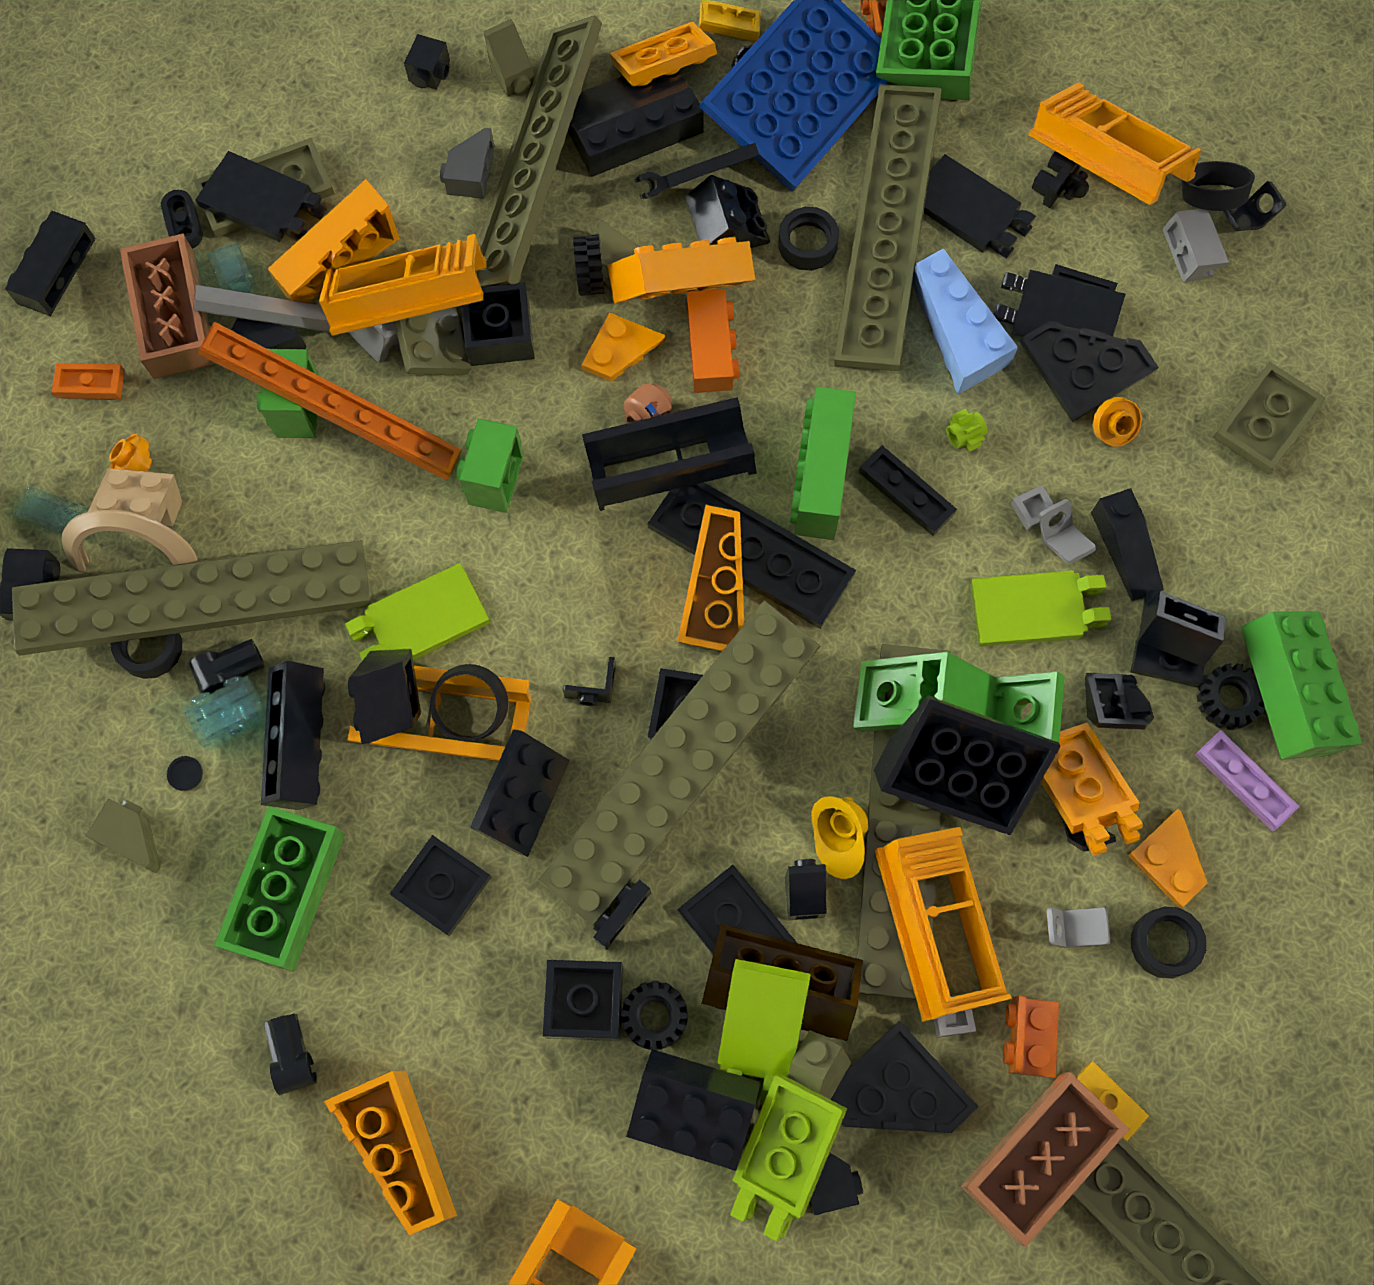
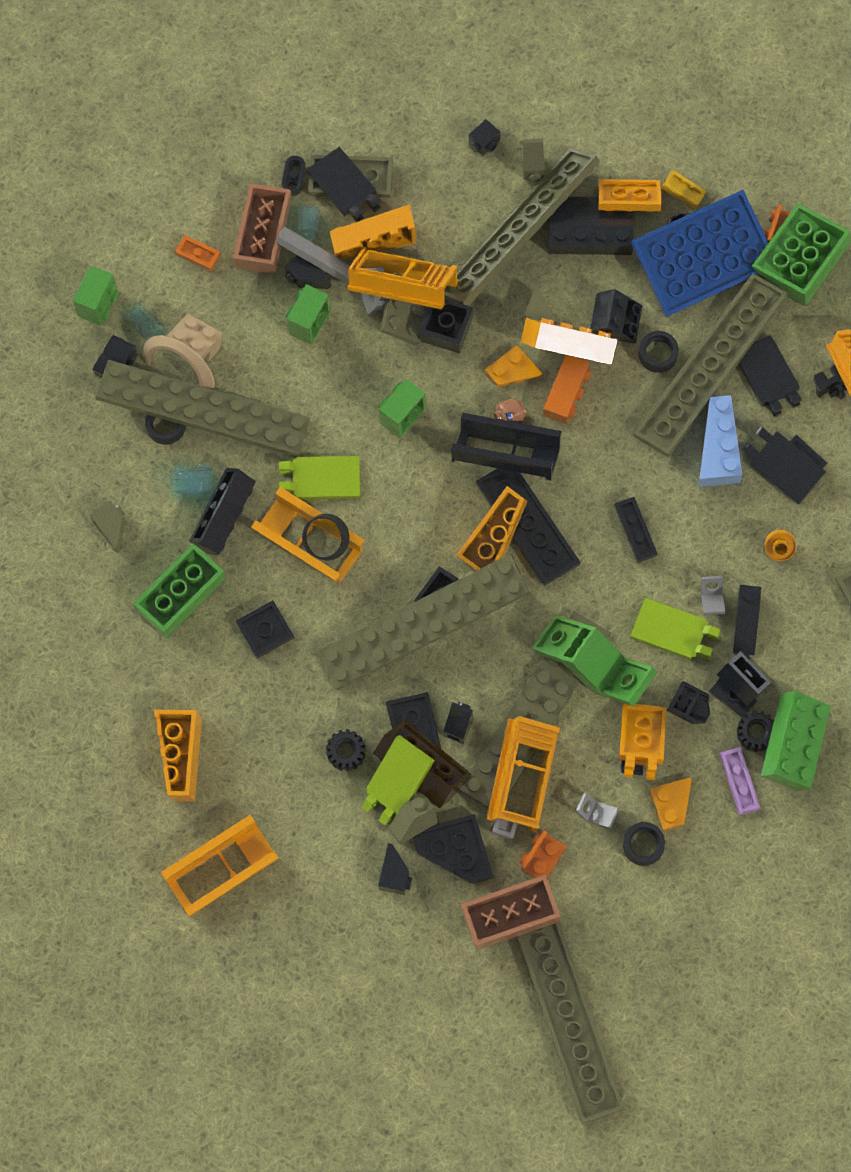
camera: 30 degrees right, 0 degrees up
(50, 263) = (206, 170): black brick -> none
(131, 454) = (203, 309): light orange plate -> none
(184, 773) = (154, 505): black piece -> none
(215, 668) = (195, 455): black piece -> none
(290, 1059) = (145, 679): black piece -> none
(329, 400) = (329, 332): orange tile -> none
(384, 694) = (282, 511): black slope -> none
(469, 166) = (478, 216): dark grey slope -> none
(520, 793) = (330, 599): black plate -> none
(583, 1000) = (311, 723): black brick -> none
(588, 265) = (516, 311): black tyre -> none
(590, 696) = (396, 565): black bracket -> none
(630, 900) = (361, 685): black plate -> none
(659, 183) = (603, 280): black tile -> none
(693, 1109) = (341, 804): black brick -> none
(786, 1154) = (377, 848): lime tile -> none
(822, 463) = (592, 492): bright green brick -> none
(839, 835) = (493, 702): yellow piece -> none
(965, 764) = (576, 694): black slope -> none
(967, 430) = (688, 510): lime gear -> none
(1030, 505) = (703, 569): light grey plate -> none
(1086, 364) = (780, 503): black plate -> none
(1113, 1097) = (567, 908): yellow plate -> none

